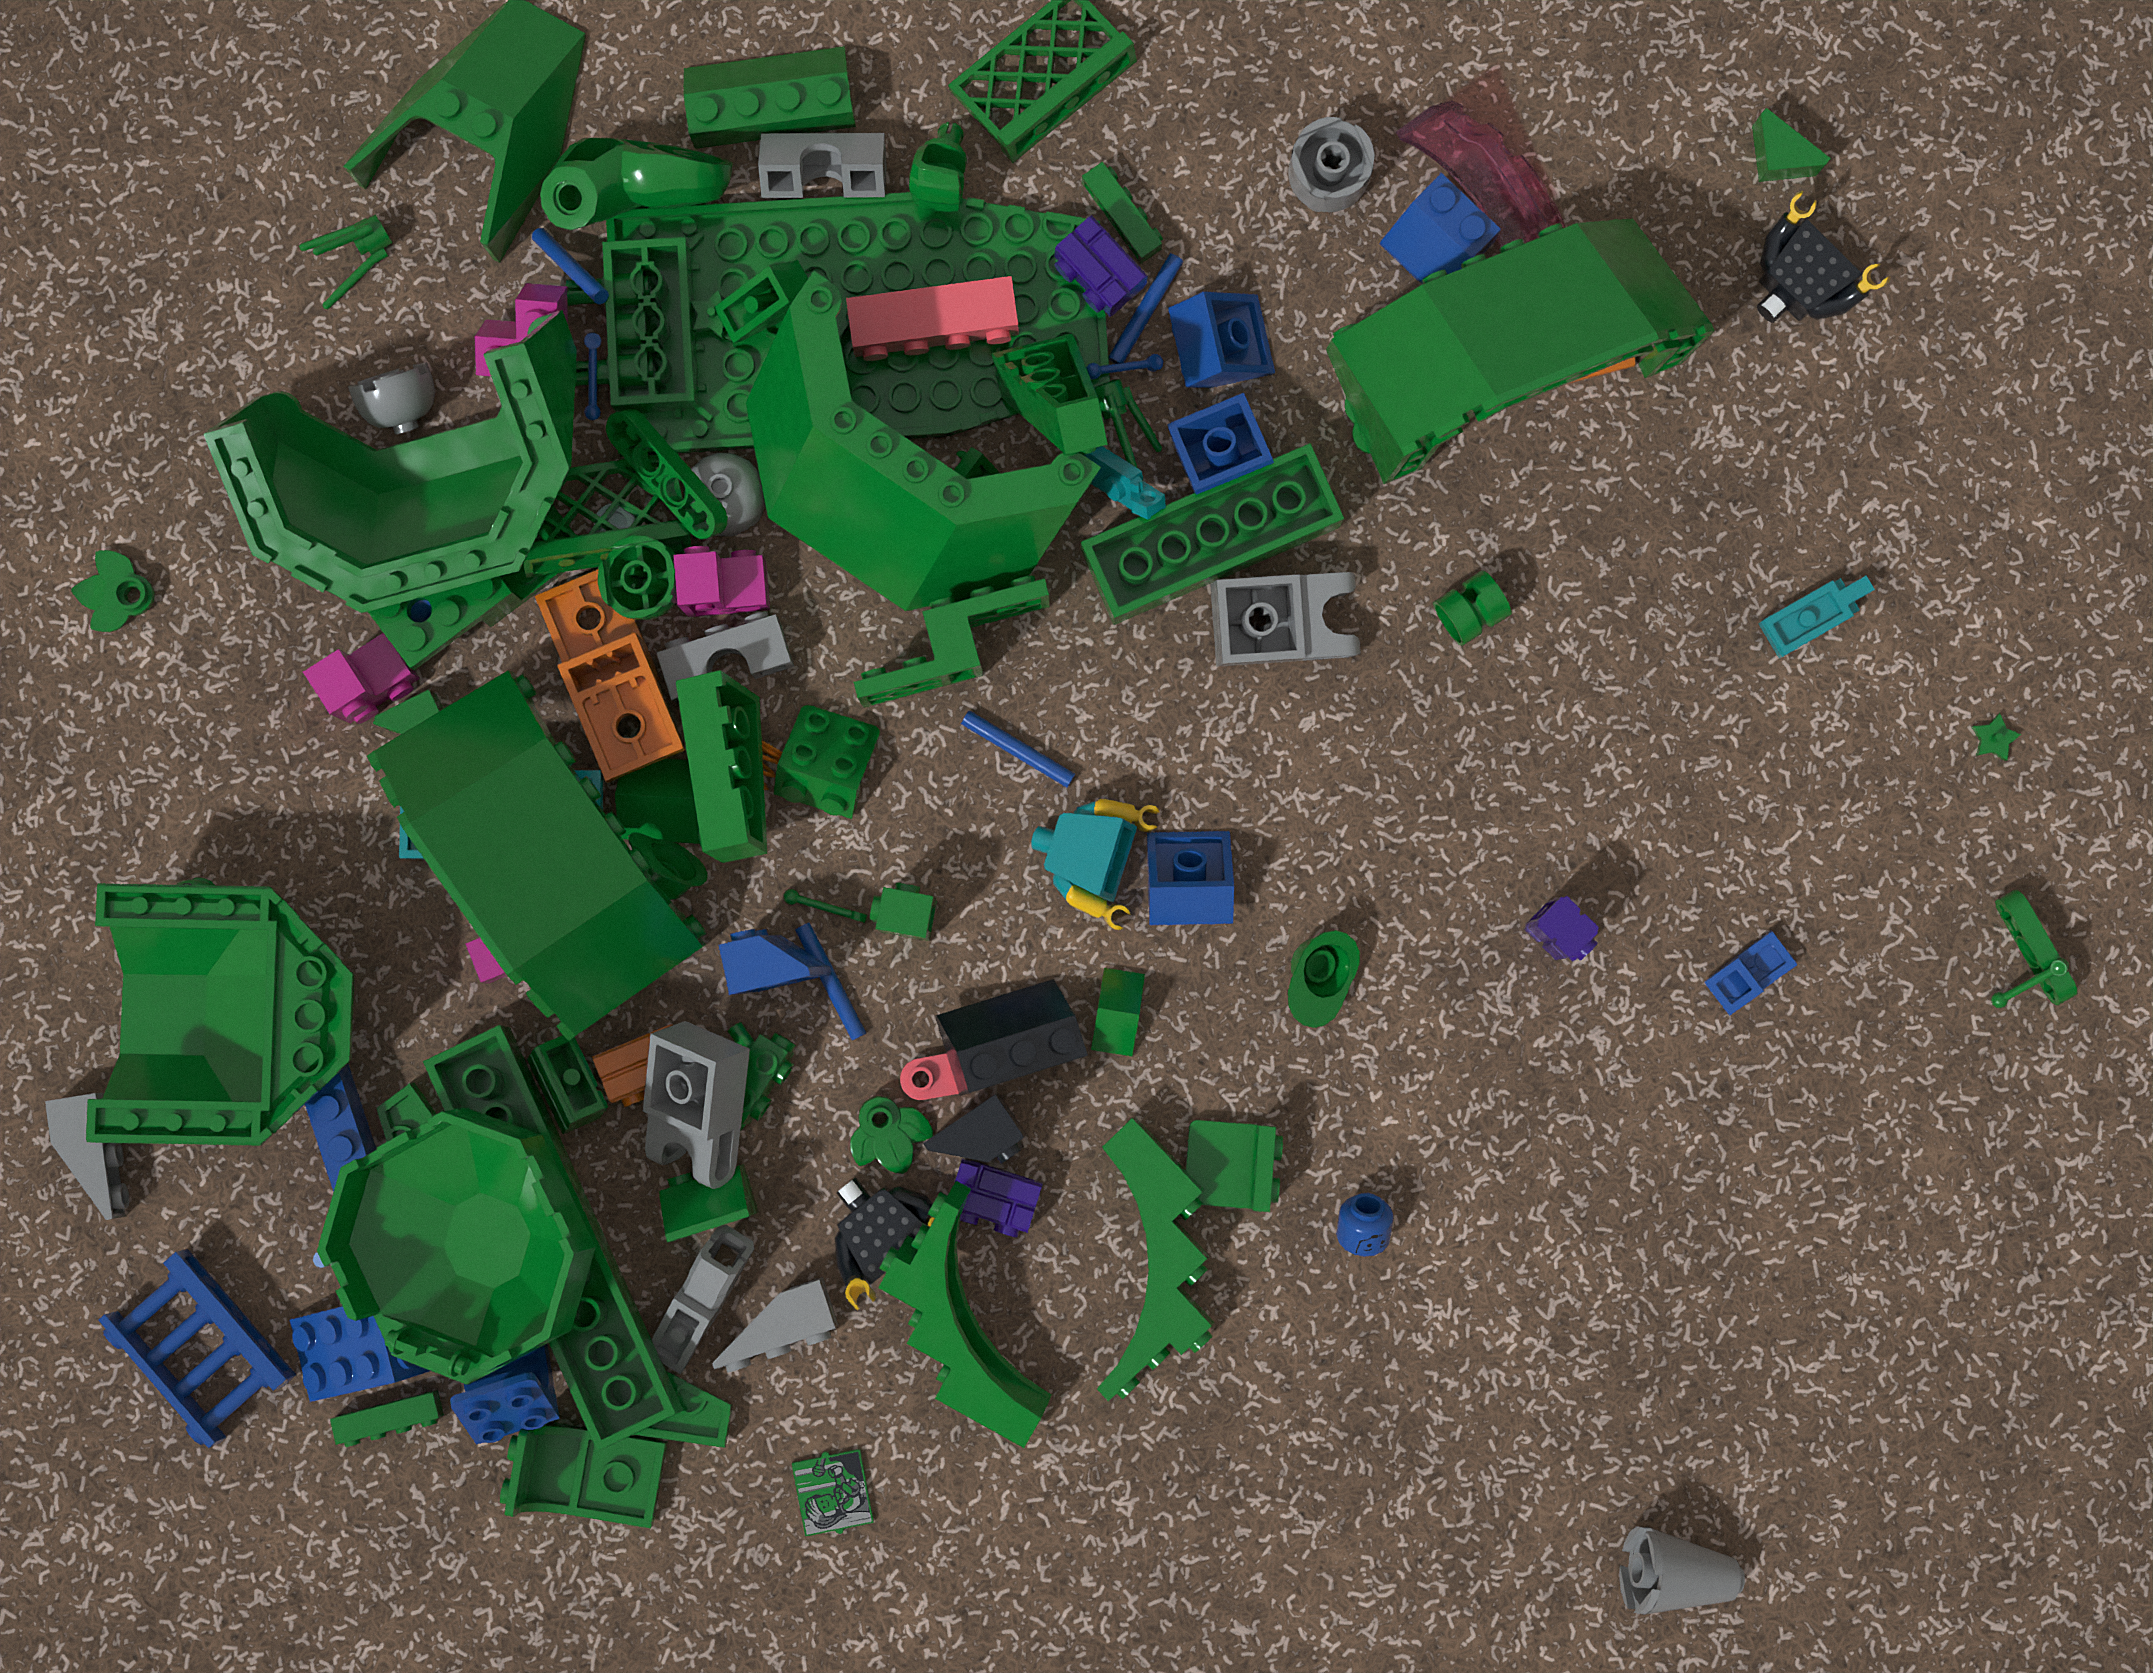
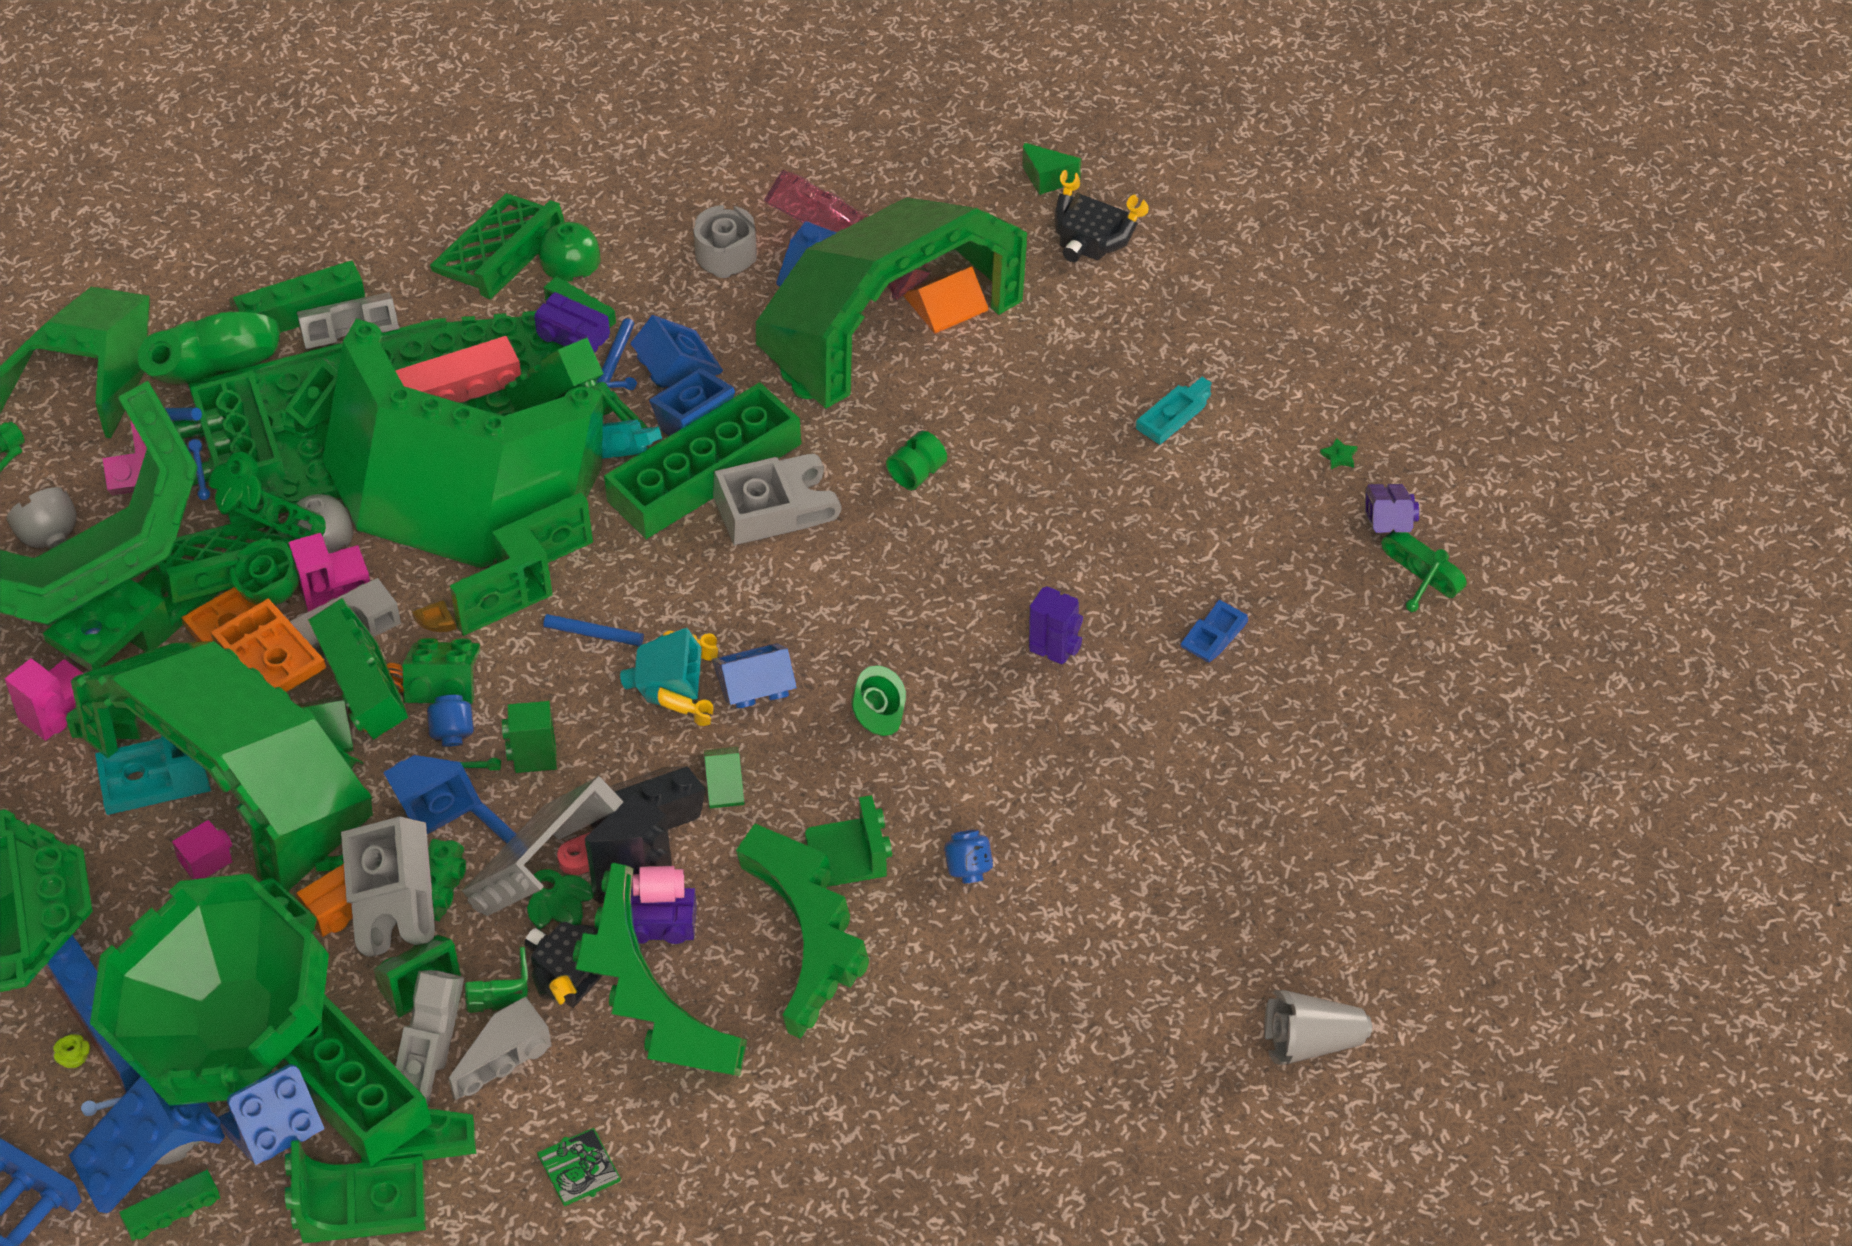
camera: 15 degrees left, 35 degrees down
(302, 1187) = (71, 1058): none -> lime plate
(630, 428) = (236, 484): none -> green plate
(649, 1012) = (329, 863): none -> green piece
(791, 1258) = (497, 993): none -> green piece
(819, 848) = (450, 720): none -> blue head
(835, 673) = (435, 616): none -> pearl gold tile
(870, 1100) = (506, 877): none -> light grey panel
(939, 170) = (435, 300): green piece -> none
(1000, 1185) = (658, 884): none -> bright pink brick
(1129, 117) = (569, 251): none -> green cylinder
(2025, 866) = (1390, 508): none -> brick

